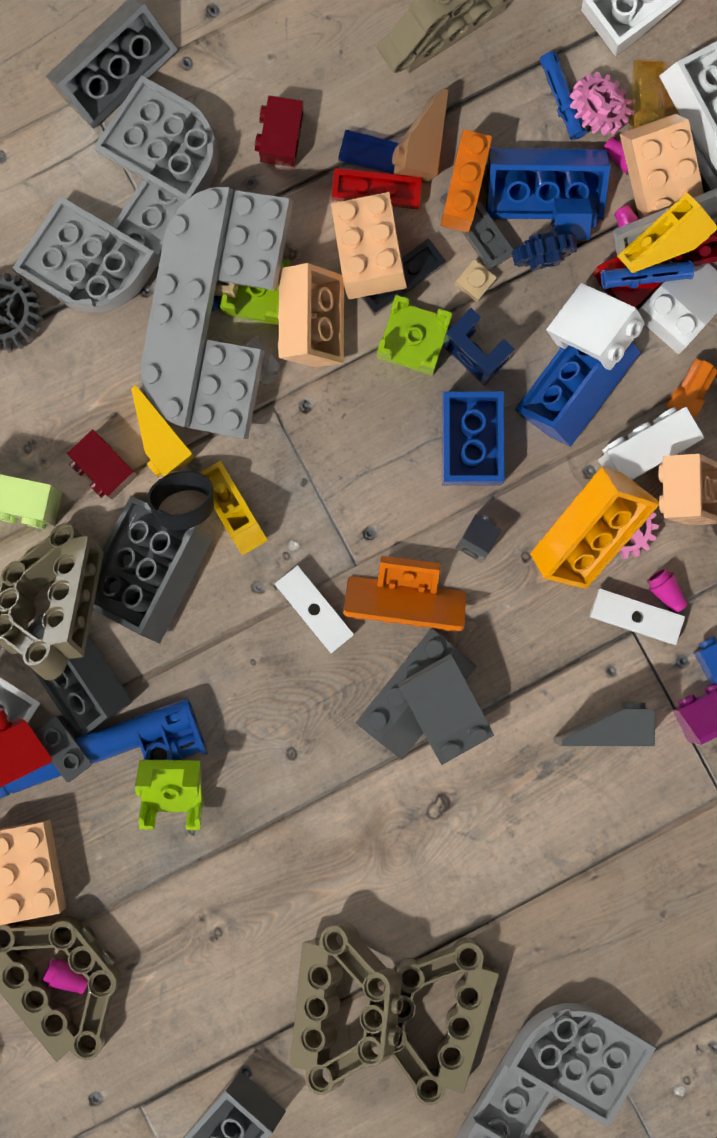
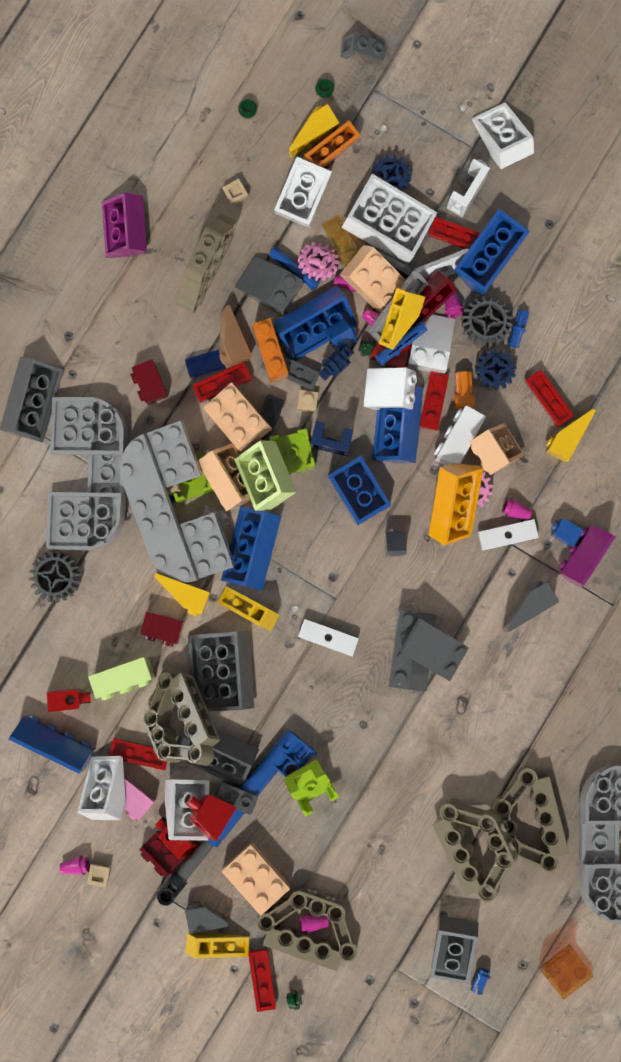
camera: 25 degrees left, 0 degrees up
(175, 483) = (208, 615): black tyre -> none
(284, 429) = (252, 547): none -> blue slope
(359, 341) = (265, 475): none -> yellowish green brick
(406, 595) = (374, 599): orange bracket -> none
(518, 99) = (270, 285): none -> dark grey slope
(596, 255) = (366, 347): none -> dark green plate
(644, 380) = (434, 401): none -> red plate

